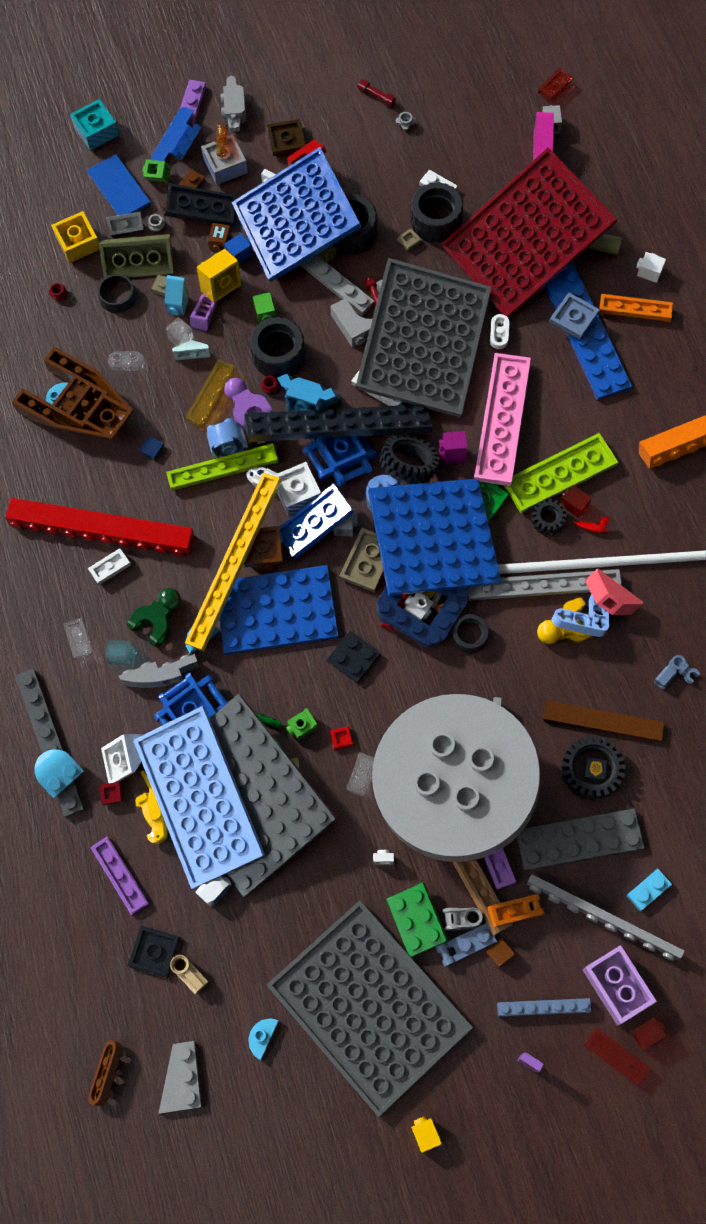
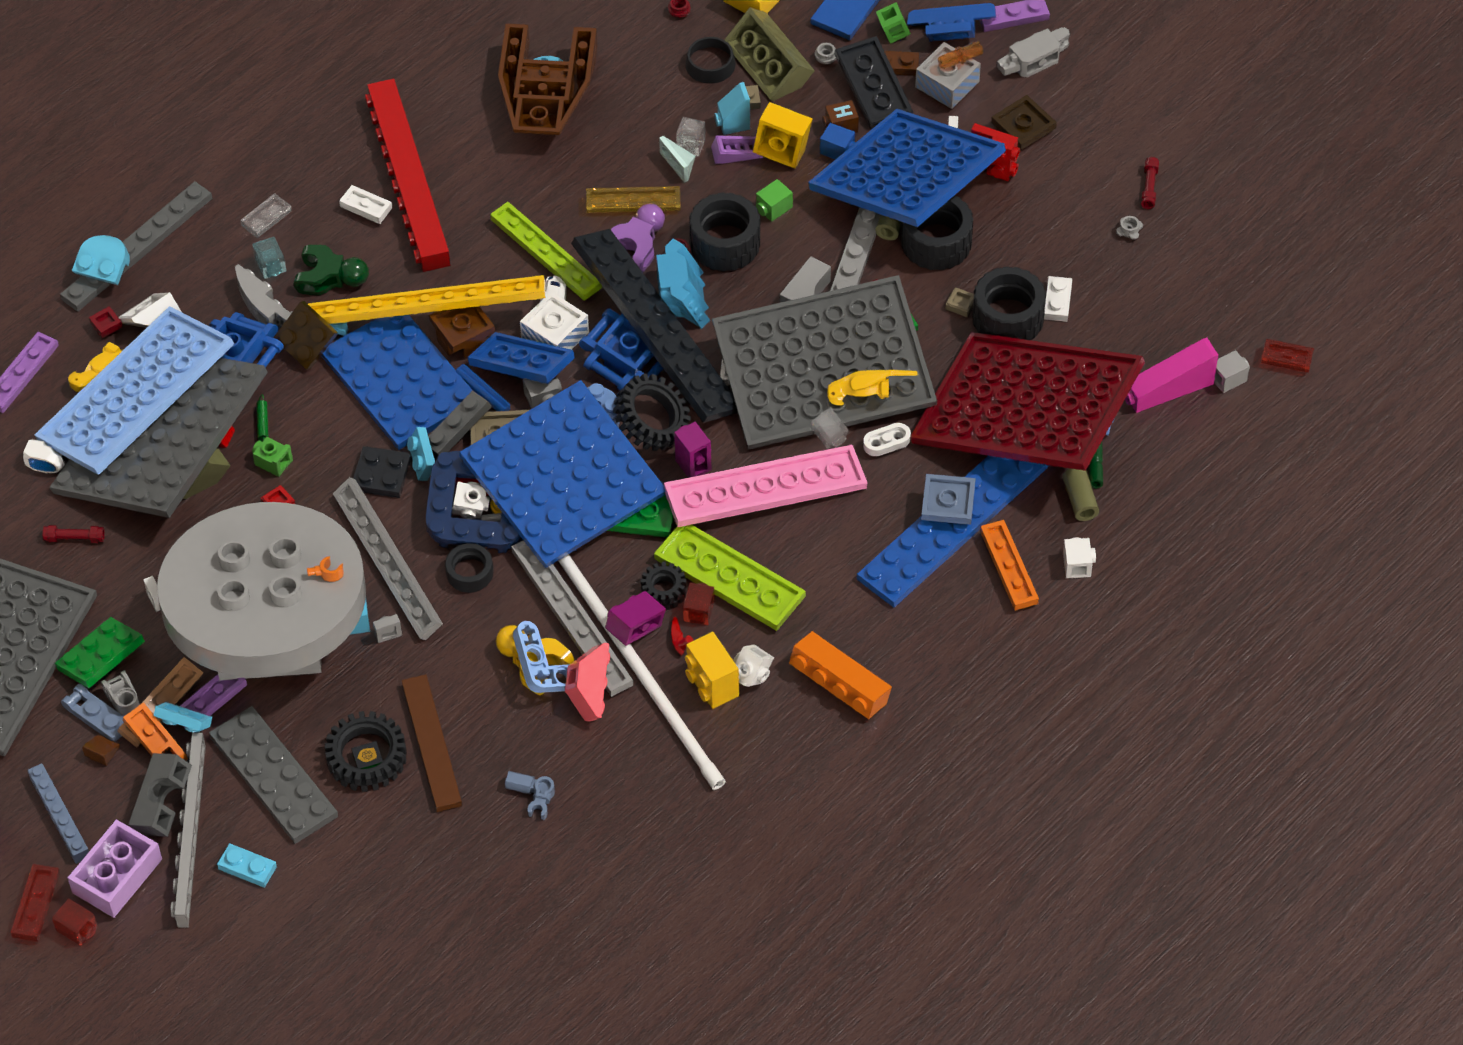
camera: 60 degrees right, 15 degrees down
(124, 223) = (804, 25): light grey plate -> none
(125, 360) = (626, 104): clear plate -> none
(151, 447) = (533, 178): dark blue tile -> none
(212, 655) = (306, 335): none -> dark brown plate
(226, 438) = (572, 225): medium blue brick -> none
(304, 881) = (52, 533): none -> dark red bar
(320, 559) = (483, 389): none -> blue axle
(344, 588) = (458, 423): none -> dark grey plate
(356, 622) = (421, 453): none -> medium azure plate
(434, 684) = (387, 559): none -> light grey plate
(462, 318) = (864, 384): none -> yellow animal
(474, 727) = (327, 575): none -> orange piece
(481, 358) = (829, 428): none -> clear brick
(511, 882) = (174, 714): none -> medium azure plate
(571, 545) = (635, 618): none -> magenta brick
(583, 940) = (162, 776): none -> dark grey arch
(641, 515) = (712, 670): none -> yellow brick
(645, 490) = (753, 665): none -> white brick

